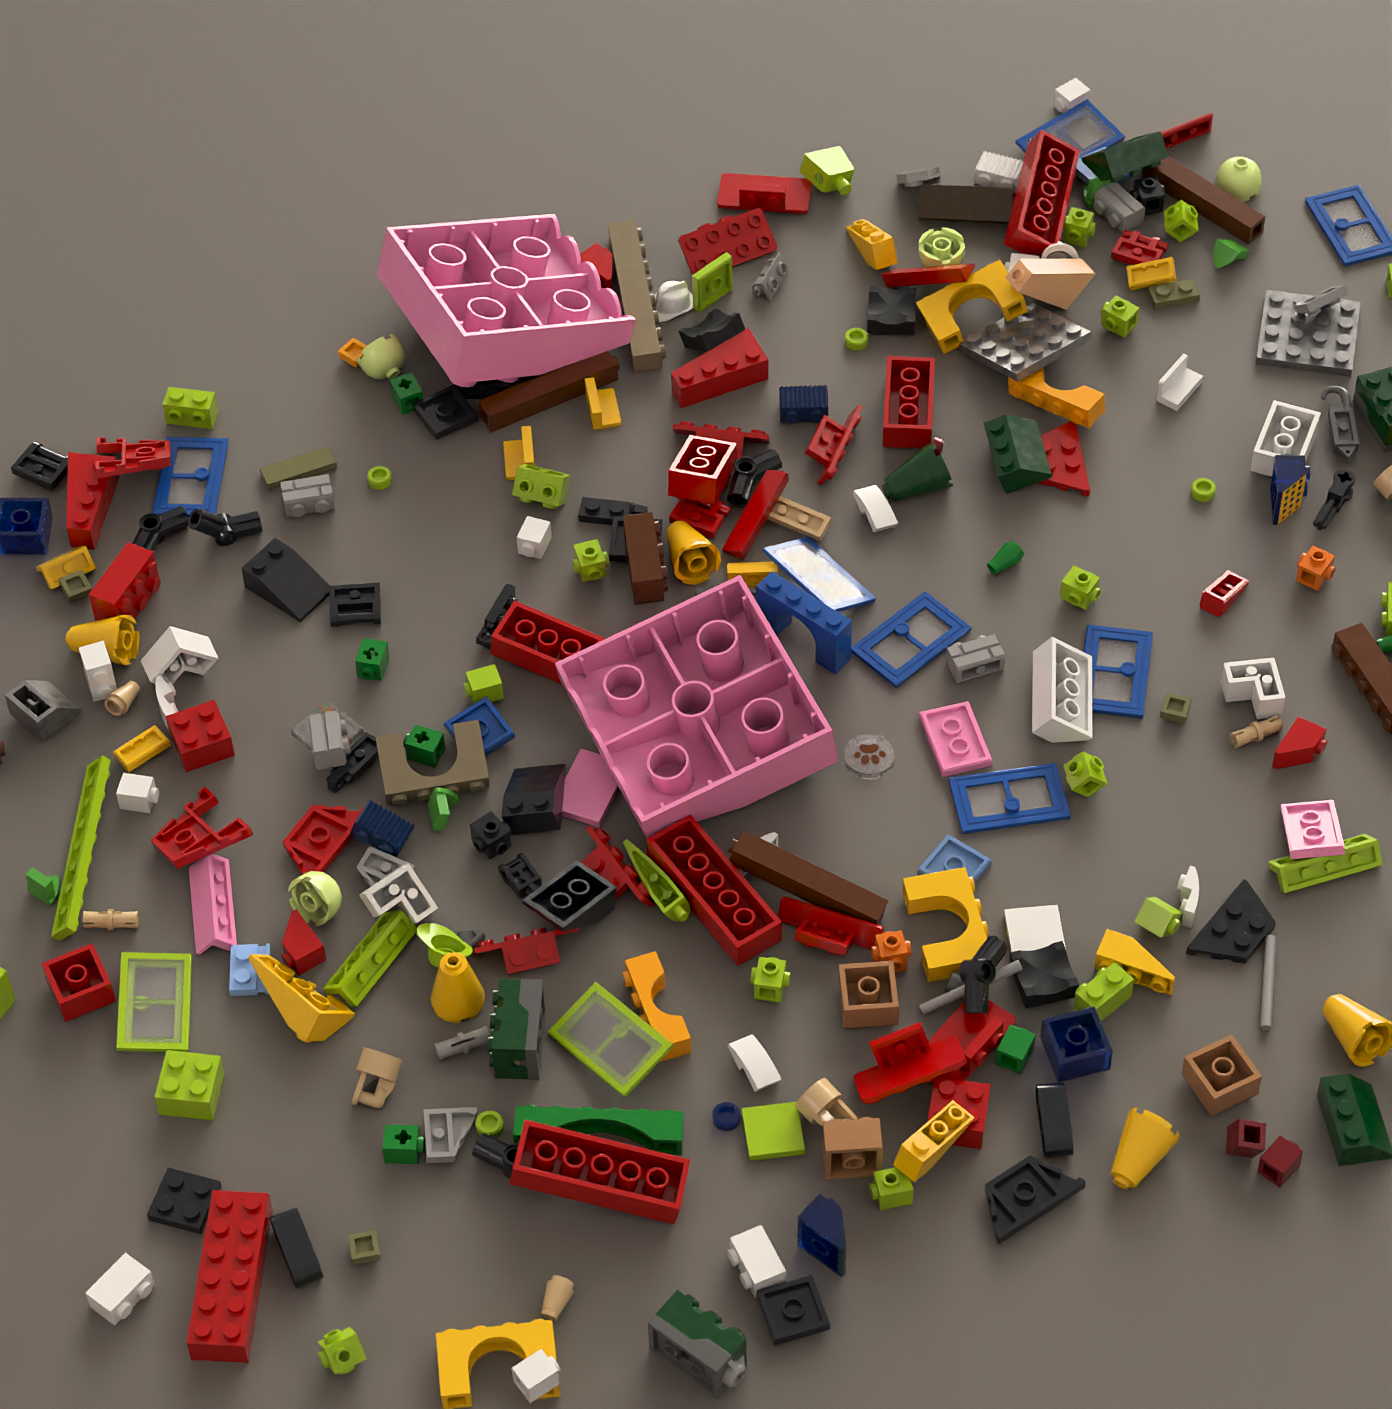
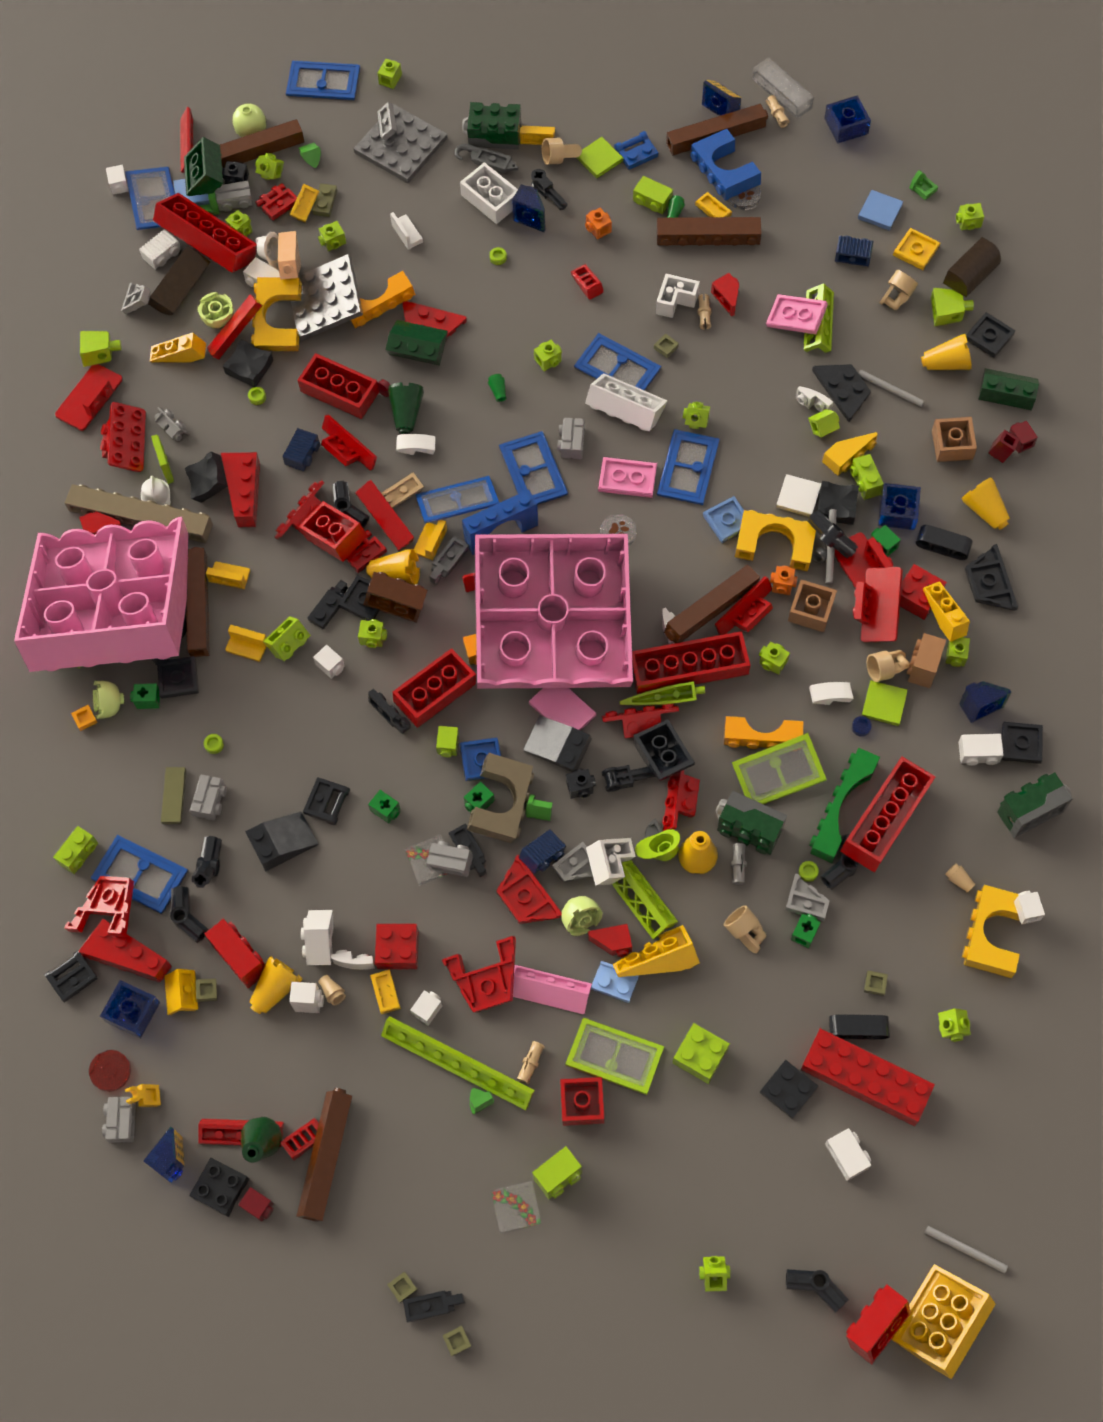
camera: 65 degrees left, 15 degrees up
(40, 707) = (314, 1050): flat silver slope -> none

